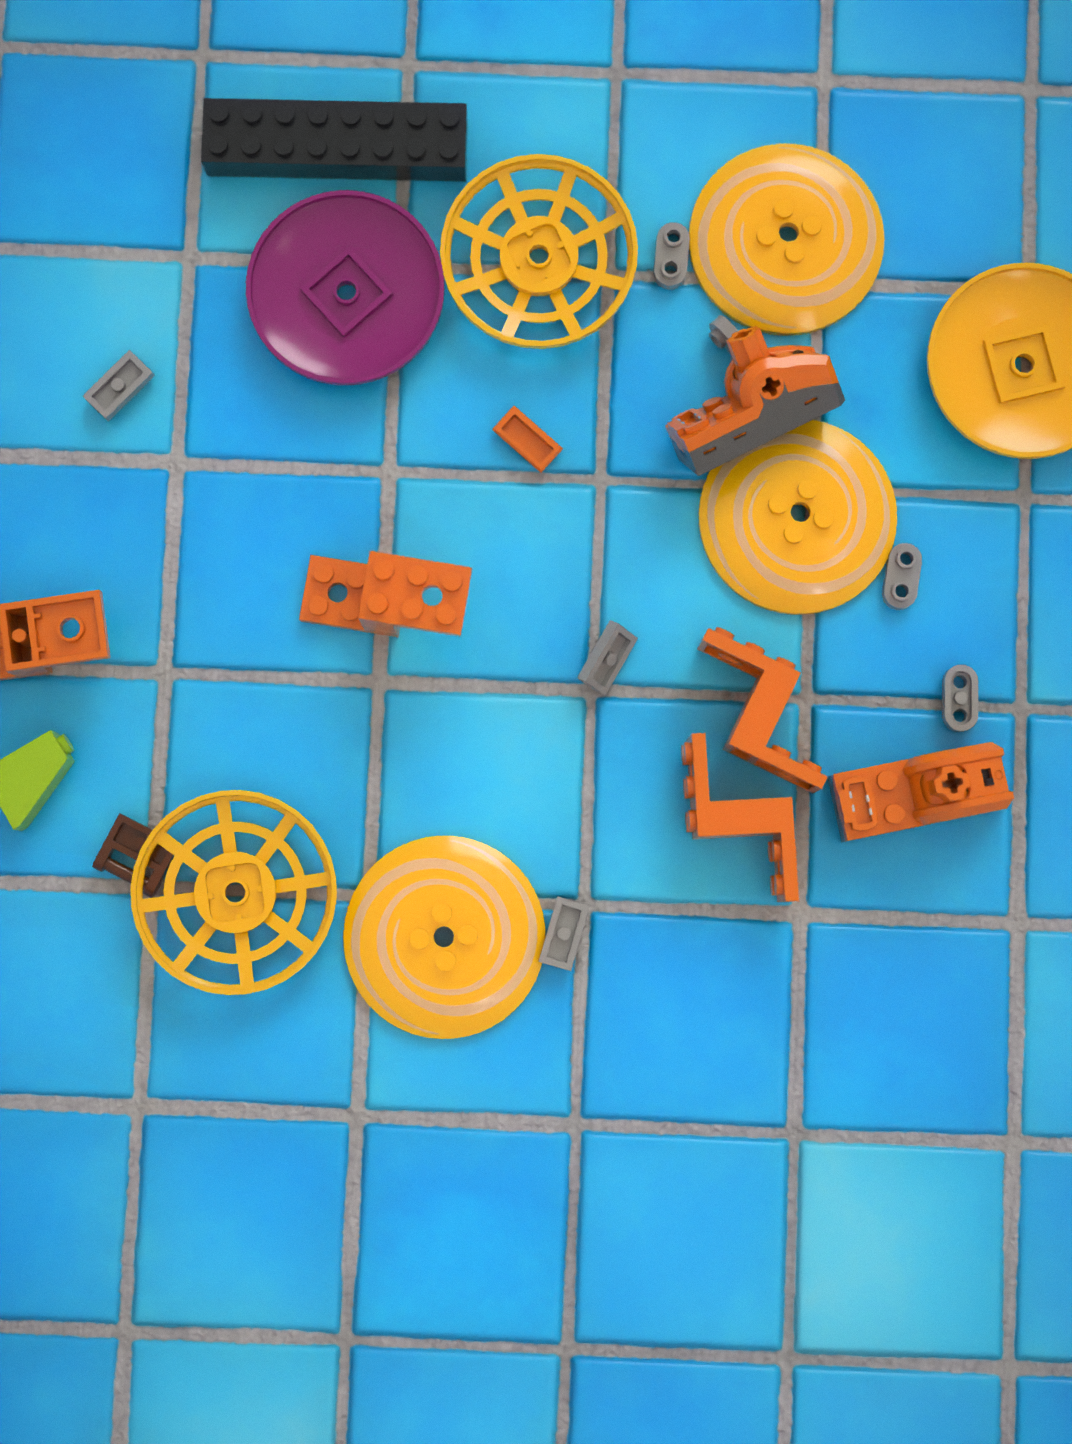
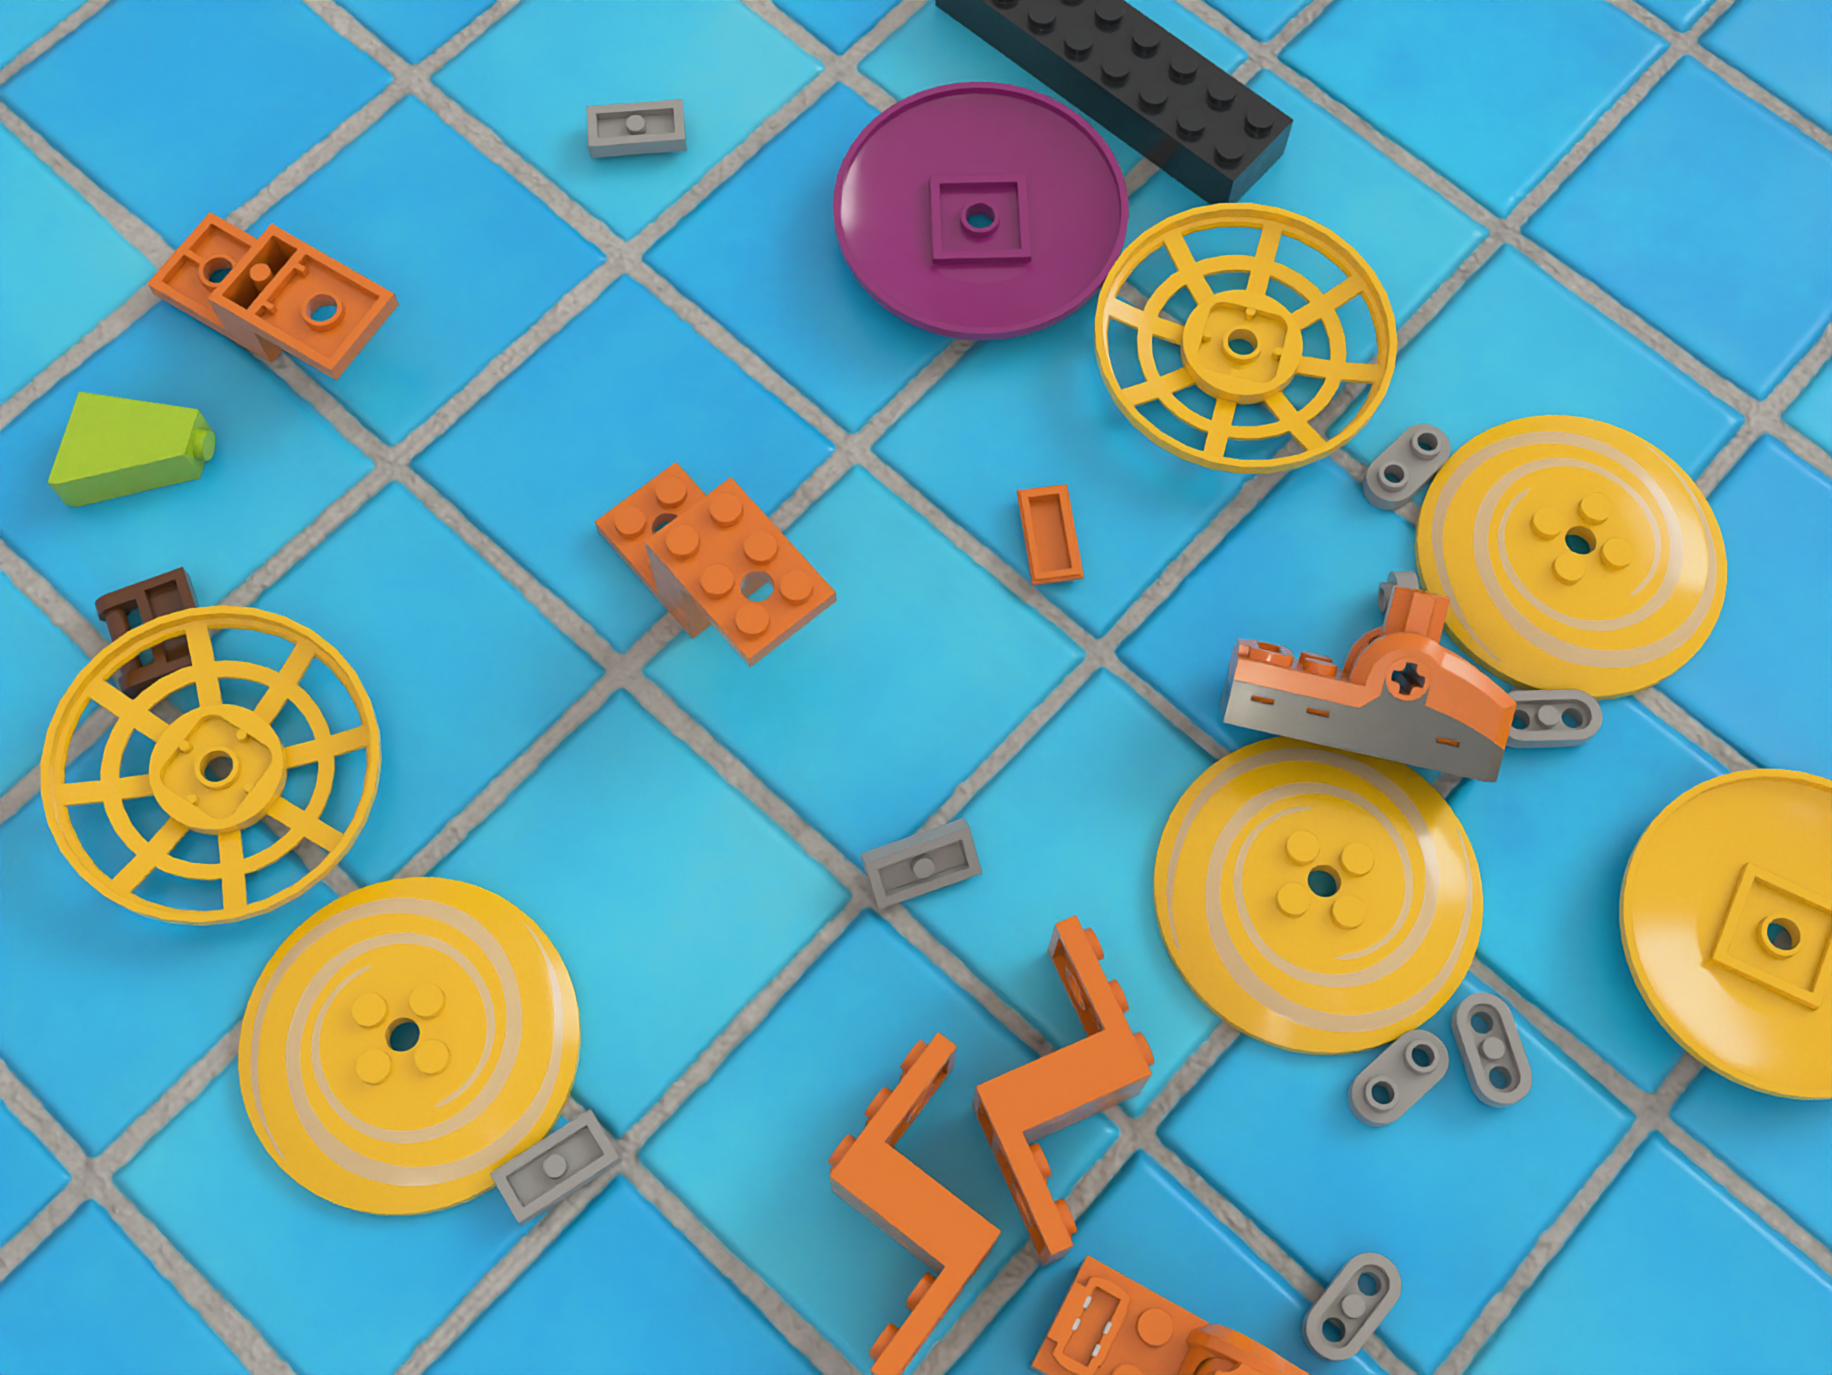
camera: 40 degrees right, 15 degrees down
(838, 341) = (1542, 718): none -> light grey plate
(935, 526) = (1495, 1050): none -> light grey plate

